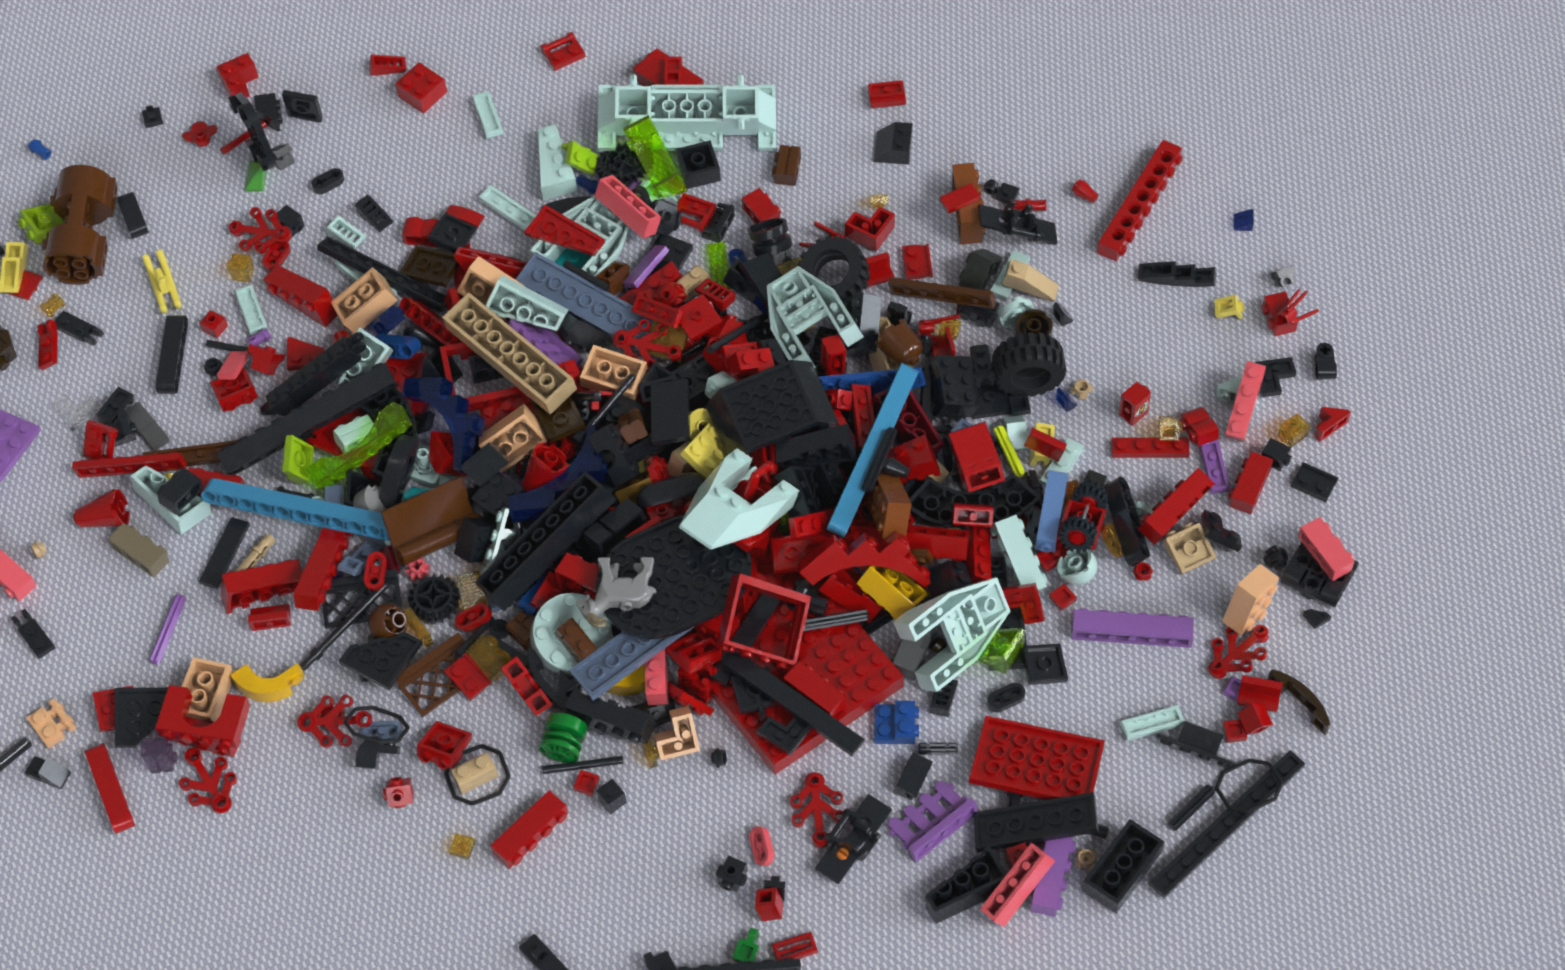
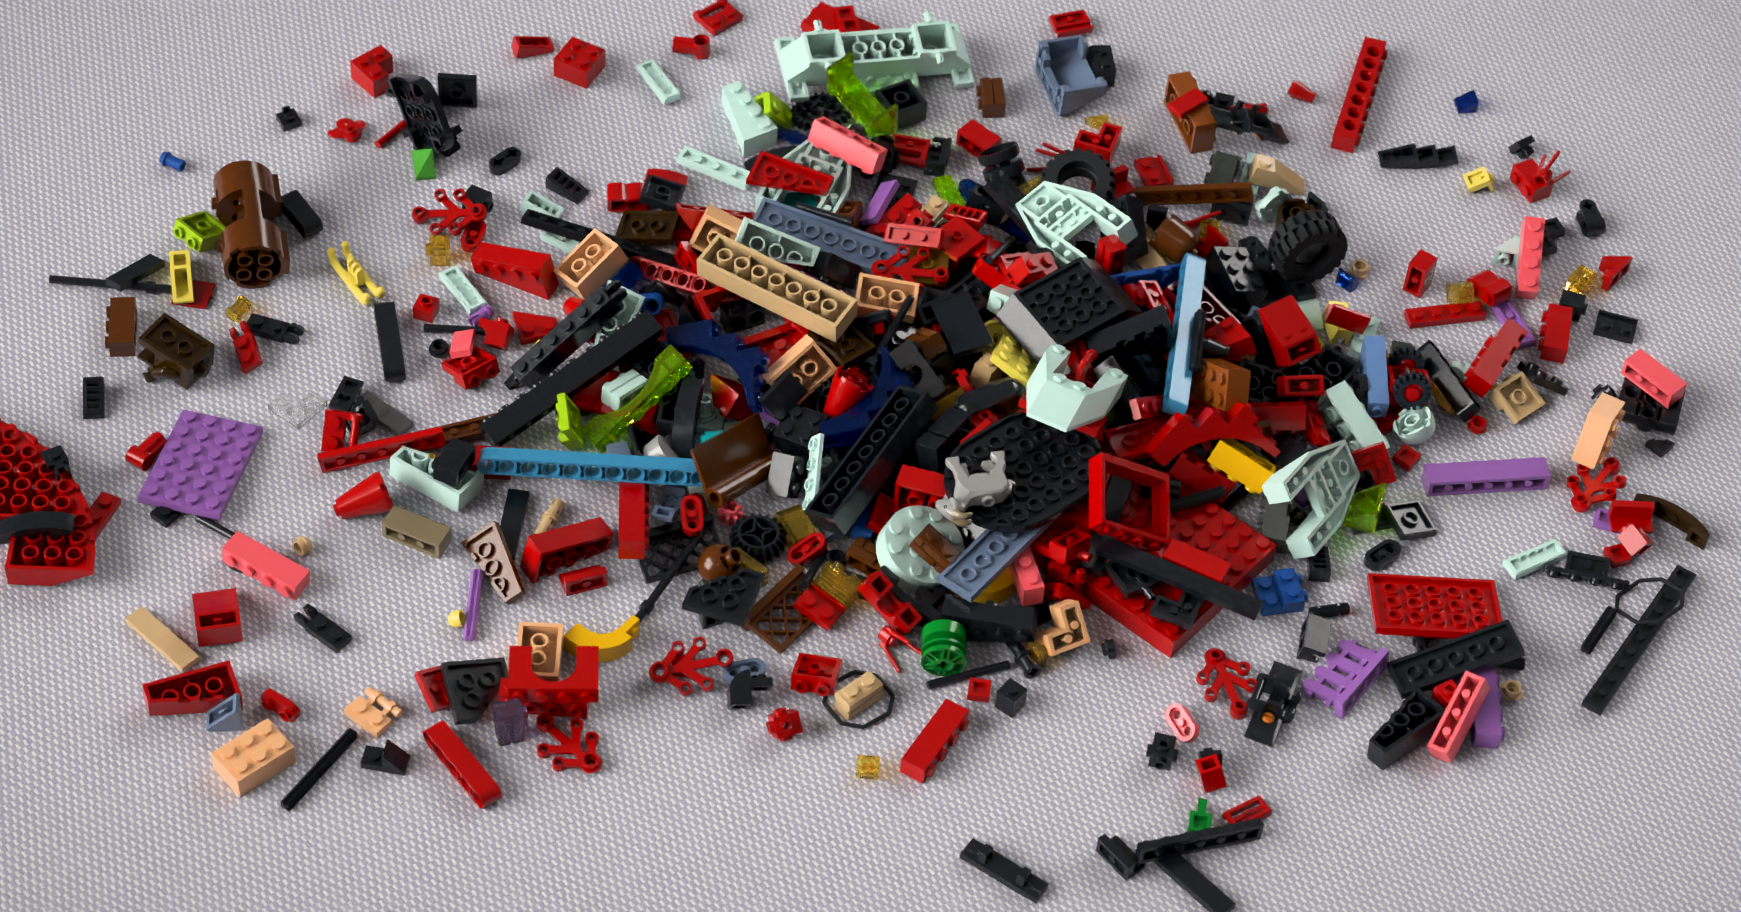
camera: 20 degrees left, 10 degrees down
(148, 641) = (457, 618): none -> light yellow hinge
(197, 588) = (494, 558): none -> wing
(370, 738) = (737, 670): black piece -> none
(524, 718) = (891, 638): none -> red plant
(532, 81) = (698, 46): none -> red piece
(637, 756) = (1024, 659): none -> black pin
(864, 149) = (1066, 74): none -> sand blue windscreen
(1123, 866) = (1553, 689): black brick -> none

